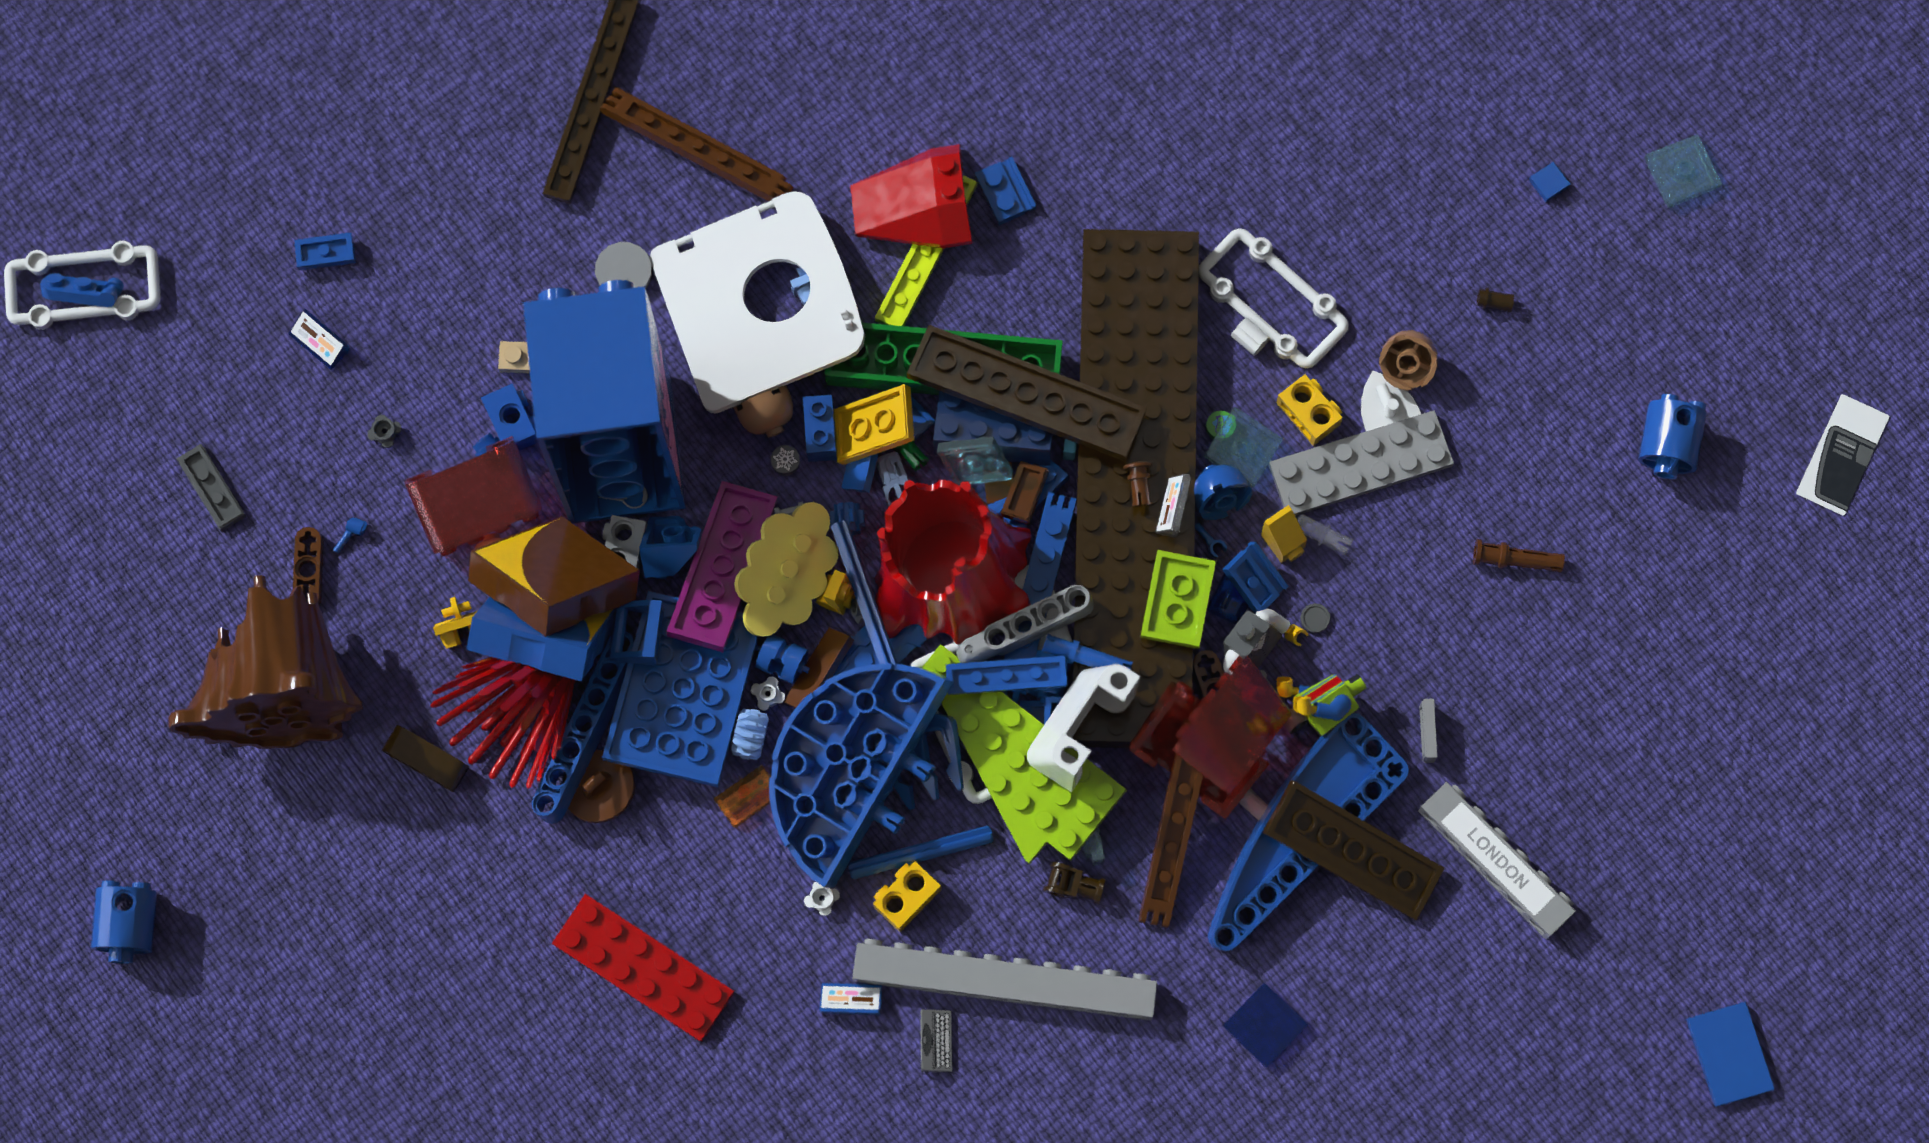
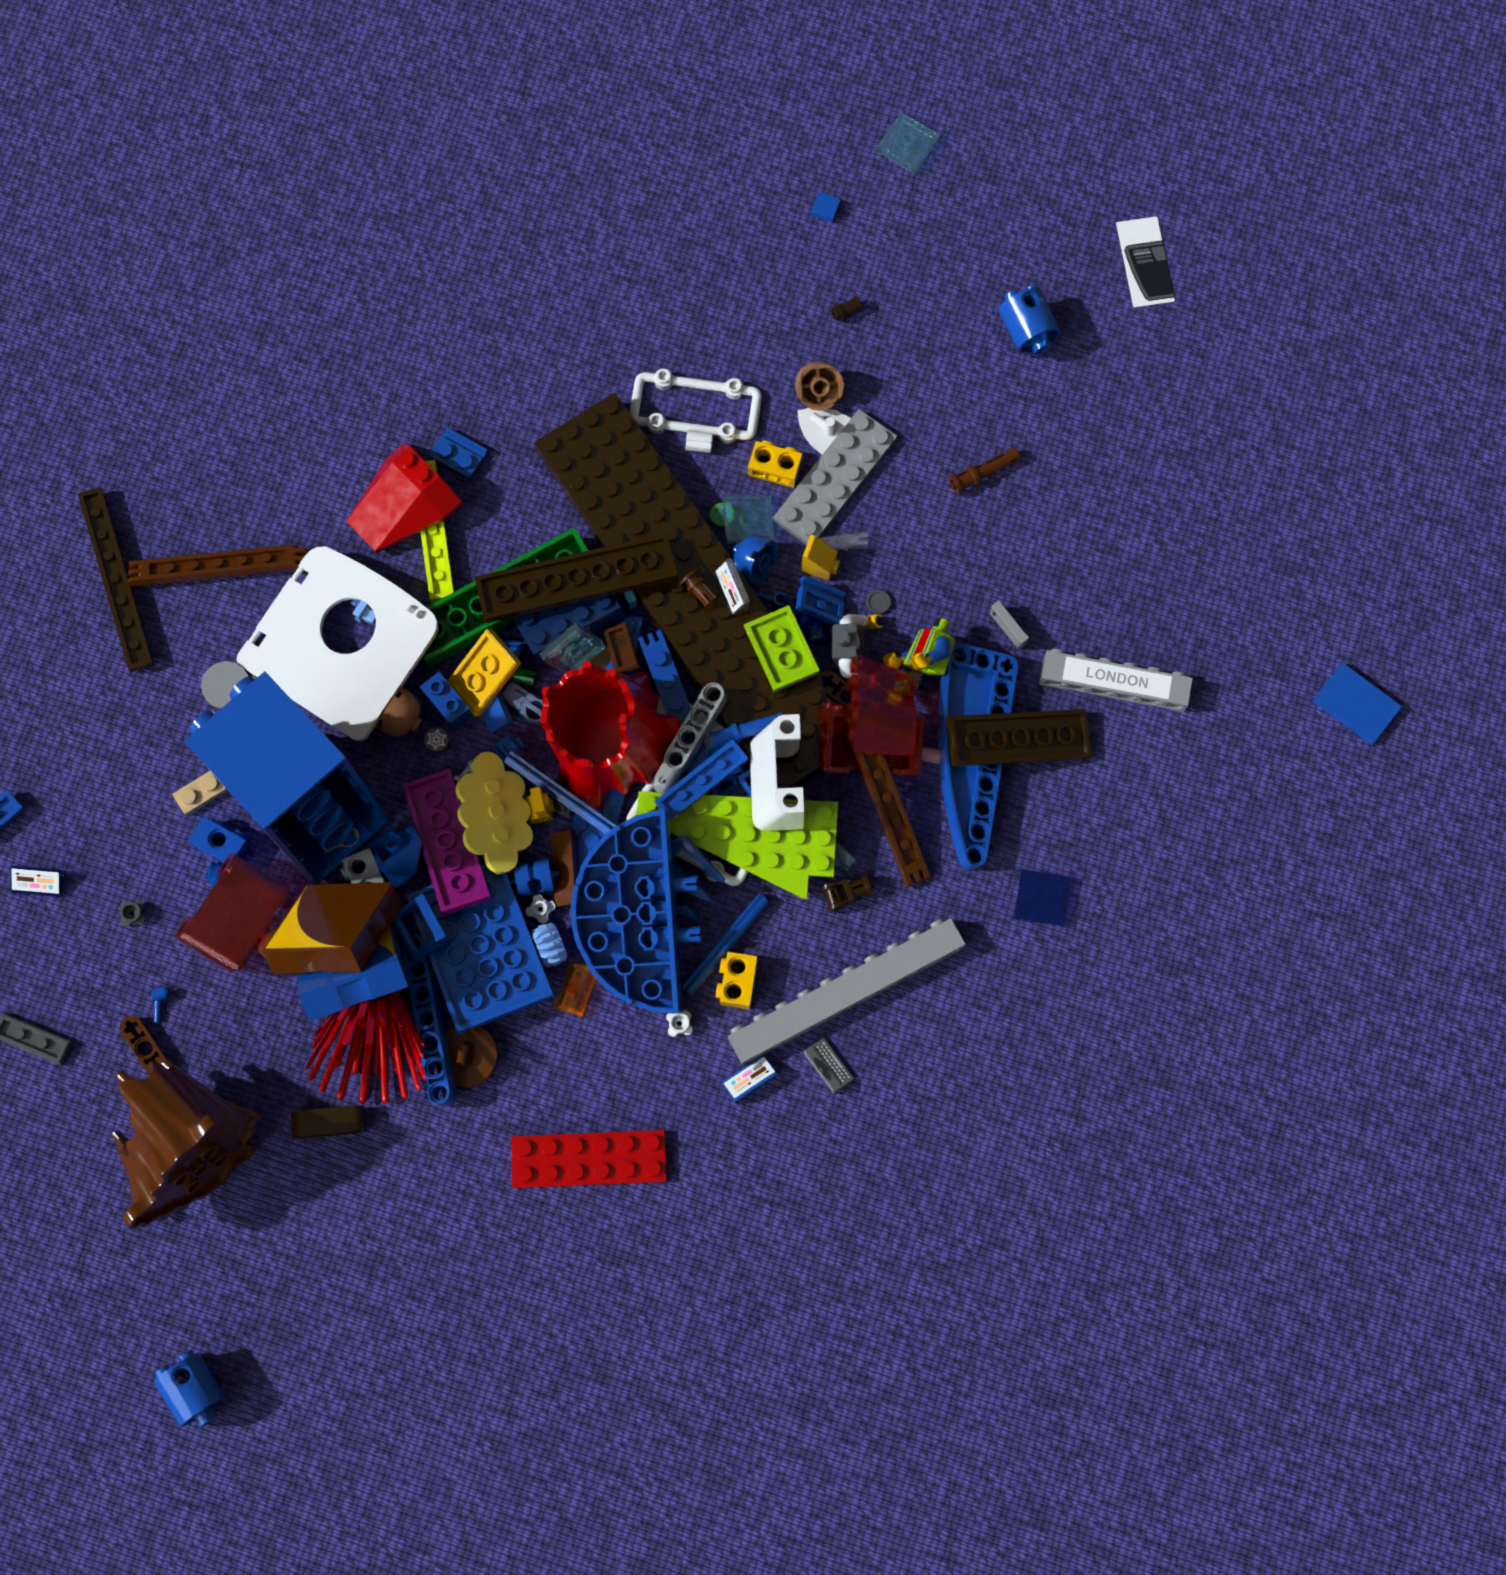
camera: 40 degrees left, 0 degrees up
(448, 629) = (279, 1019): yellow hips -> none

